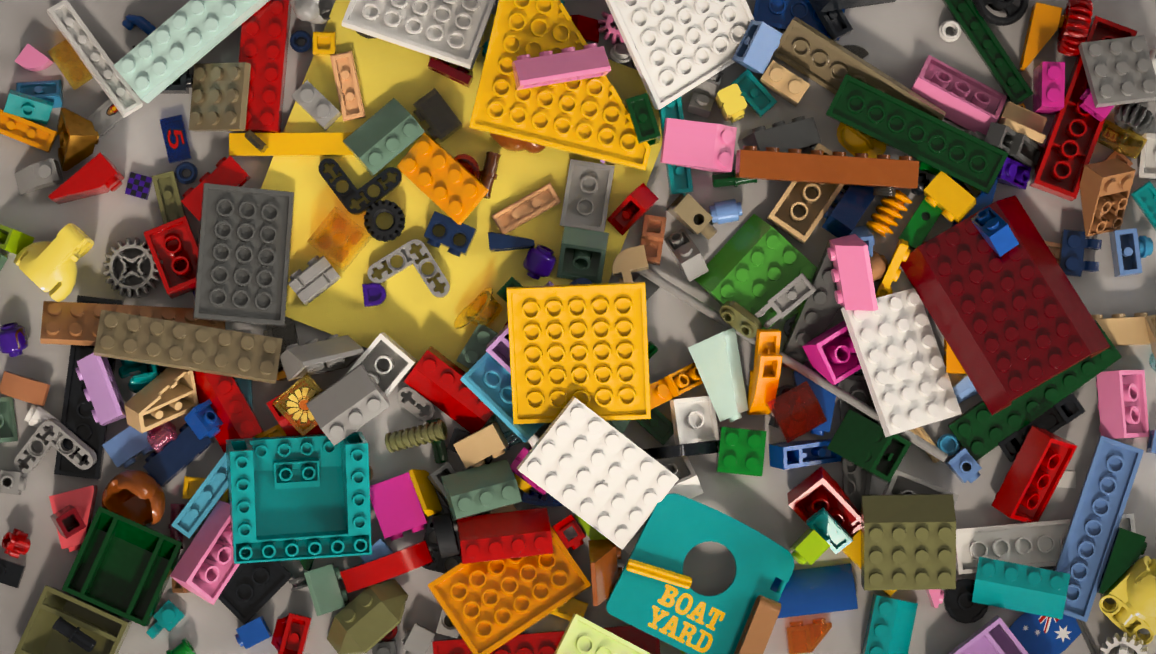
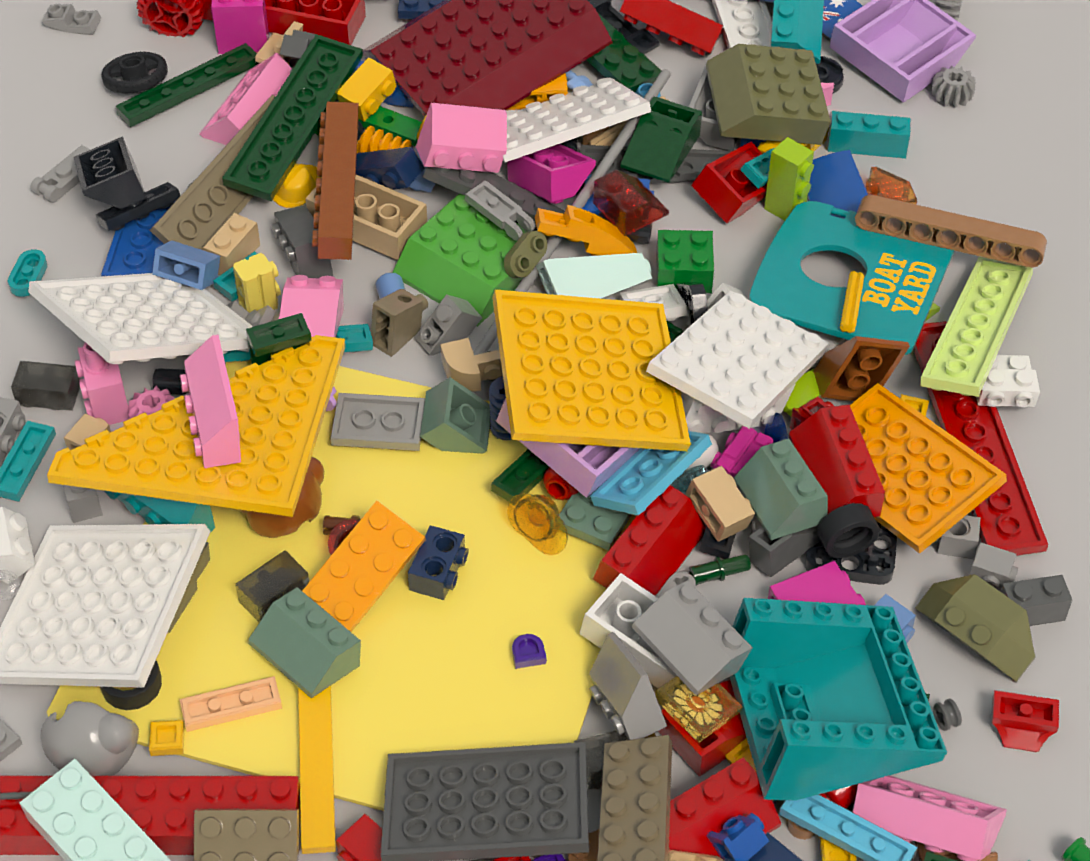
camera: 90 degrees left, 35 degrees down
(253, 587) = (968, 771): black plate -> none
(253, 633) = (1031, 765): blue brick -> none
(256, 141) = (314, 800): clear smoke tile -> none
(297, 35) = (162, 765): dark blue plate -> none
(314, 279) = (513, 717): light grey brick -> none
(316, 105) = (259, 732): light grey brick -> none
(326, 589) = (955, 675): sand green slope -> none
(339, 239) = (453, 685): clear yellow brick -> none
(352, 192) = (384, 684): black beam -> none
(384, 234) = (420, 626): black tyre -> none
(386, 567) = (909, 604): red slope -> none
(408, 260) = (478, 604): light grey beam -> none
(416, 436) = (717, 579): olive piece -> none
(425, 492) = (806, 564): yellow slope -> none
(458, 75) = (212, 578): dark red plate -> none
(503, 242) = (445, 505): dark blue slope -> none
(526, 209) = (399, 488): light nougat tile -> none
(539, 261) = (469, 463): dark purple head -> none
(632, 209) = (393, 371): red slope -> none
(653, 237) = (422, 364): nougat slope -> none
(729, 179) = (351, 287): dark green axle -> none
(801, 454) = (682, 206): blue slope -> none
(884, 191) = (362, 138): clear smoke tile -> none
(950, 24) = (171, 114): white plate -> none
(956, 462) = (676, 83): medium blue brick -> none
(995, 231) = (405, 33): blue slope -> none
(1042, 25) = (178, 42): light orange slope -> none

